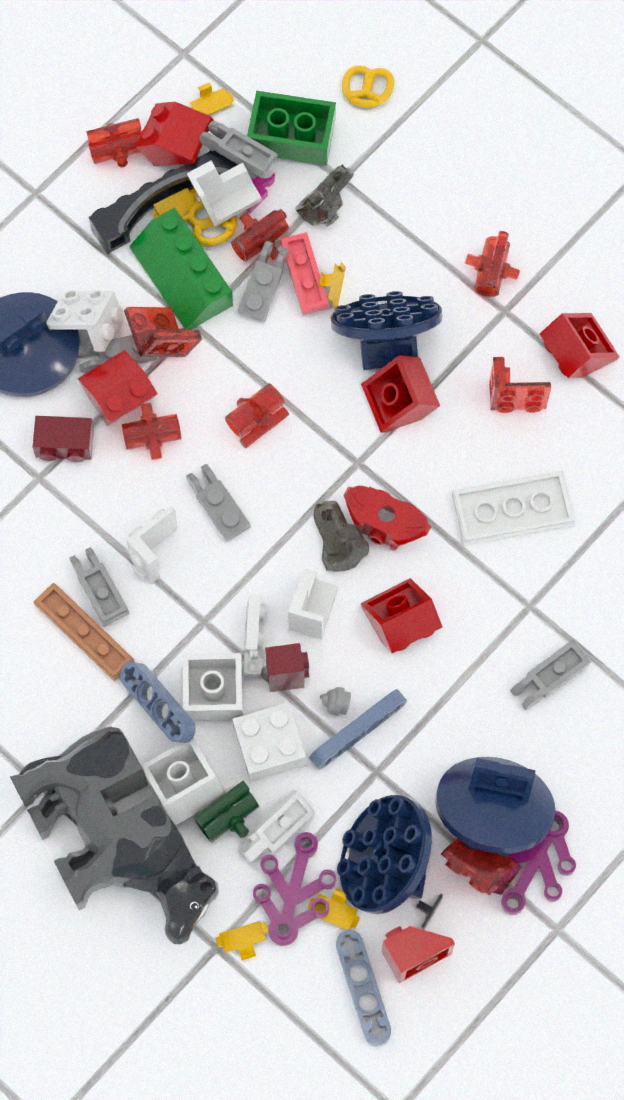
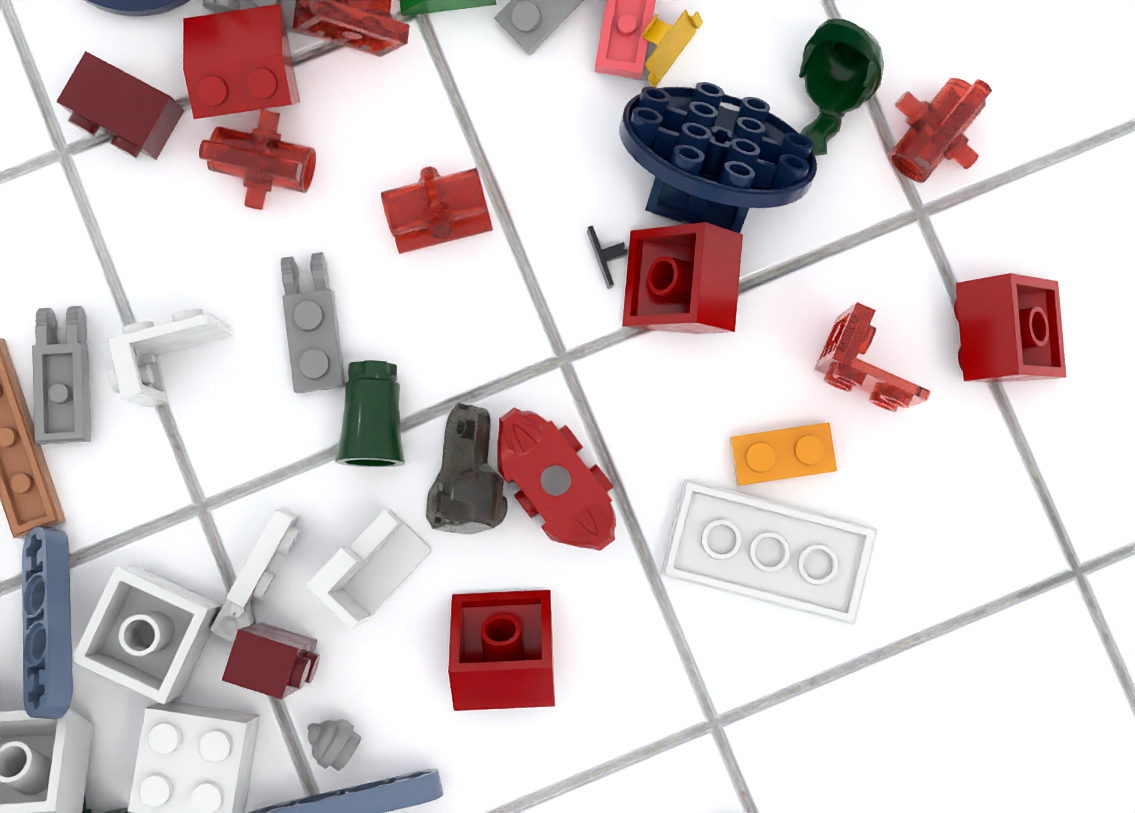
camera: 30 degrees right, 15 degrees up
(275, 532) = (371, 417): none -> dark green plant
(353, 402) = (606, 255): none -> black piece
(429, 259) = (840, 73): none -> dark green piece
(495, 457) = (783, 454): none -> light orange plate

